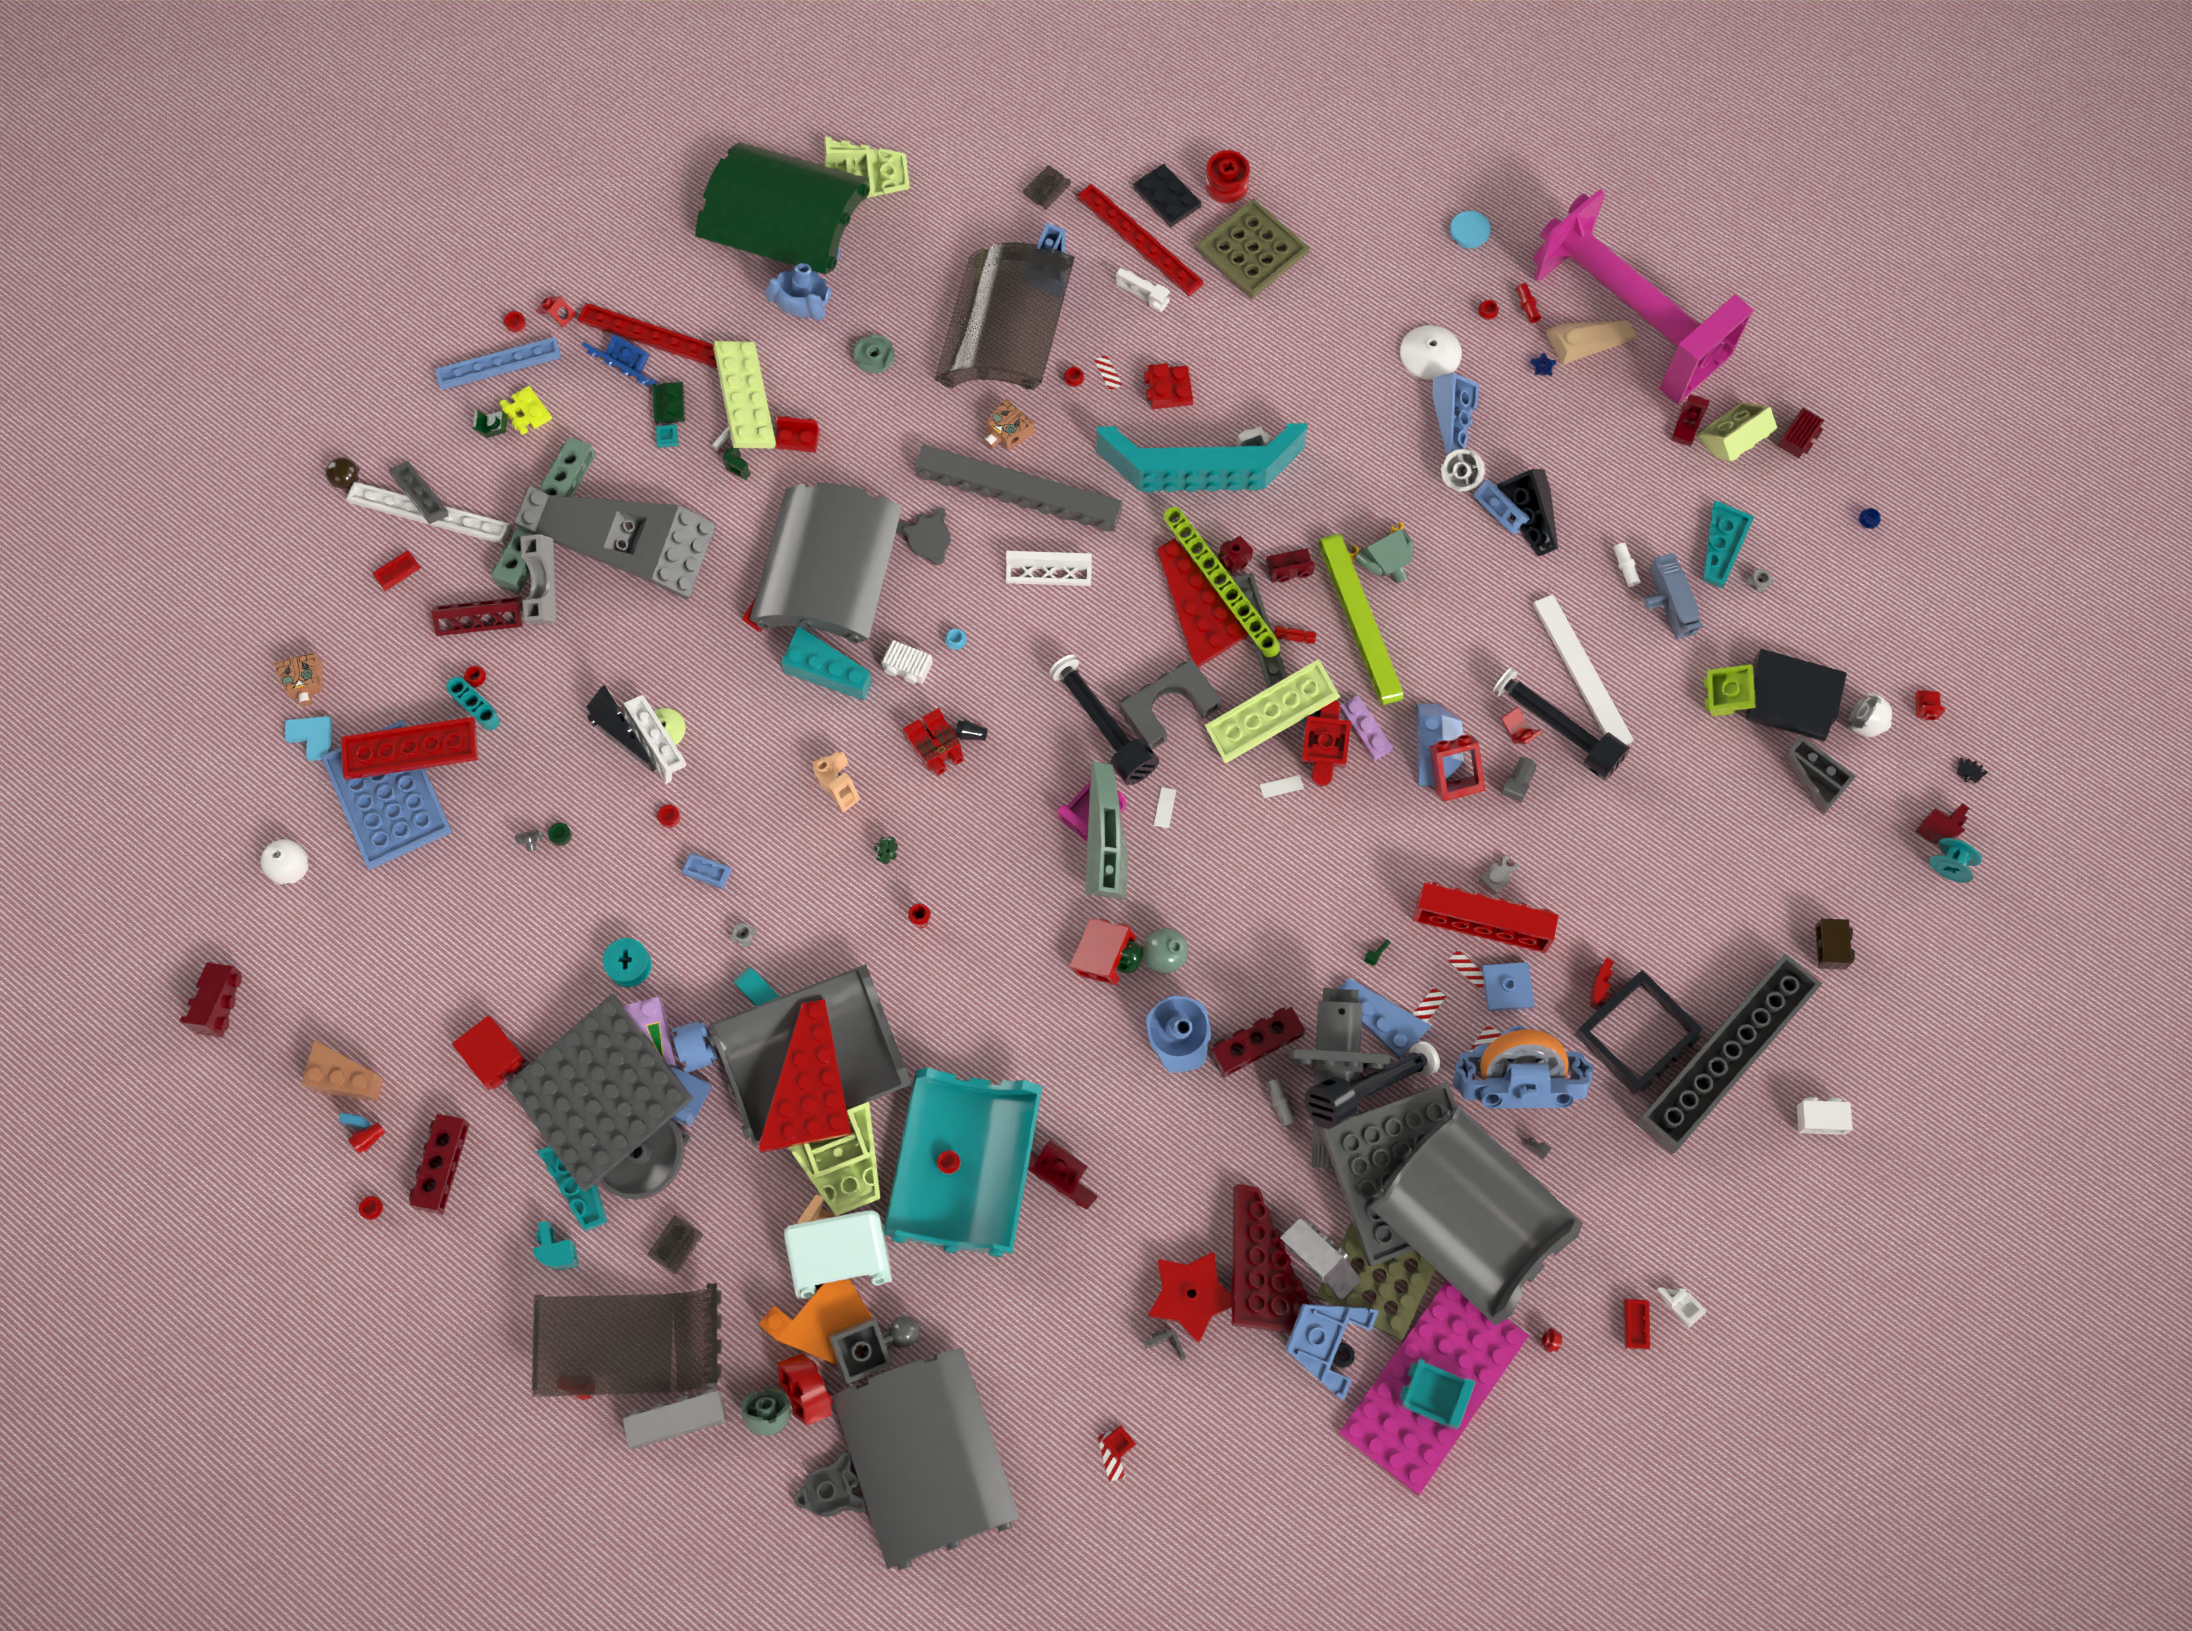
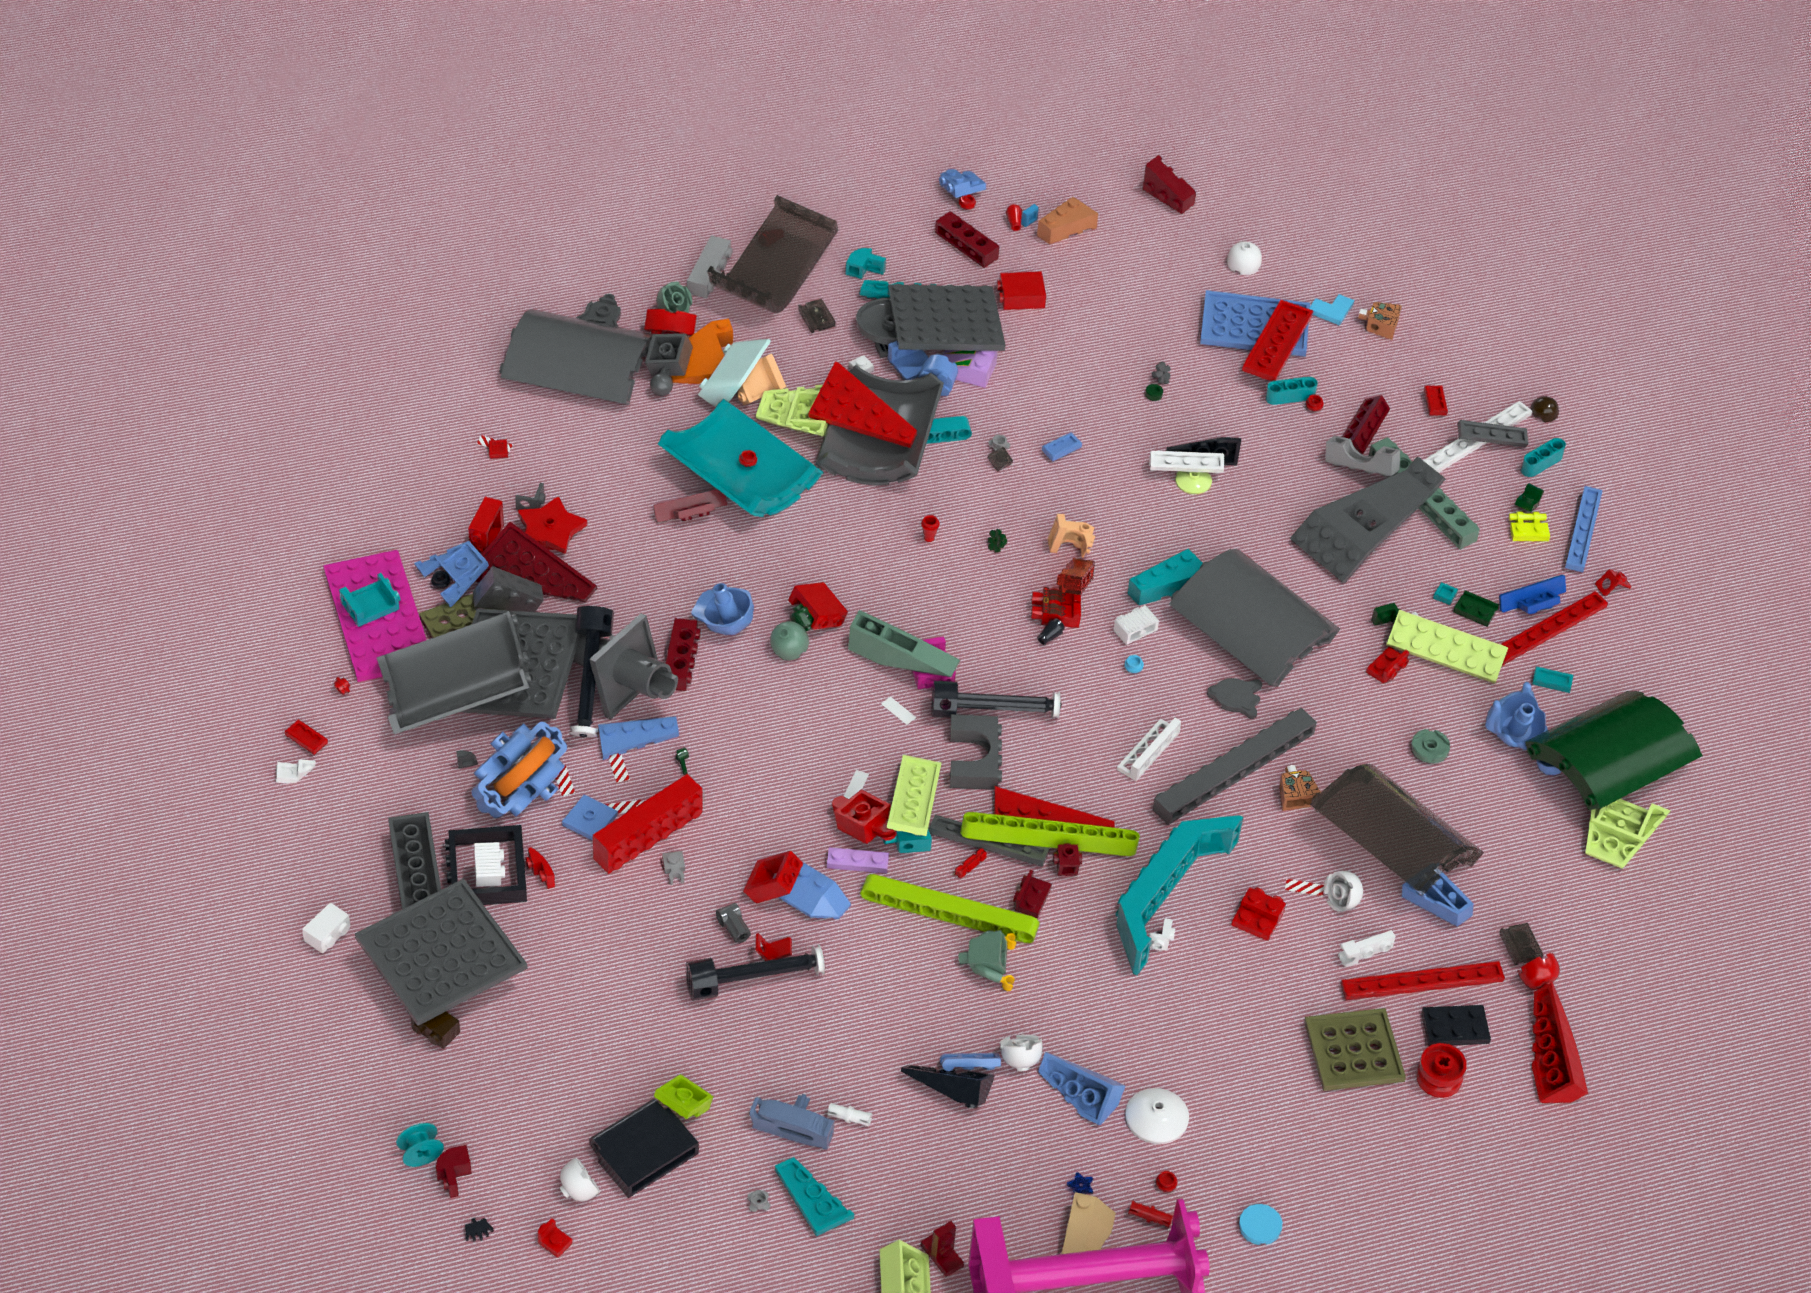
camera: 120 degrees right, 20 degrees down
(344, 1230) = (961, 184): none -> medium blue plate
(412, 434) = (1543, 457): none -> teal beam
(514, 321) = (1620, 557): red tile -> none
(616, 956) = (1028, 378): teal piece -> none
(668, 816) = (1121, 450): red tile -> none
(716, 303) = (1552, 679): none -> teal tile
(720, 1147) = (863, 363): none -> white plate
(766, 918) = (1000, 459): none -> clear smoke plate
(893, 737) = (1076, 576): none -> clear red brick
(1070, 156) = (1540, 972): none -> red cylinder
(1074, 376) = (1314, 858): red plate -> none
(1098, 330) = (1343, 890): none -> white cylinder
(1143, 113) = (1557, 1060): none -> red wedge
(1250, 1352) = (486, 523): none -> red window
(1581, 669) = (785, 1025): white tile -> none
(1651, 1016) = (488, 865): none -> white brick
(1780, 979) = (440, 951): none -> dark grey plate
(1818, 773) = (568, 1110): flat silver wedge -> none

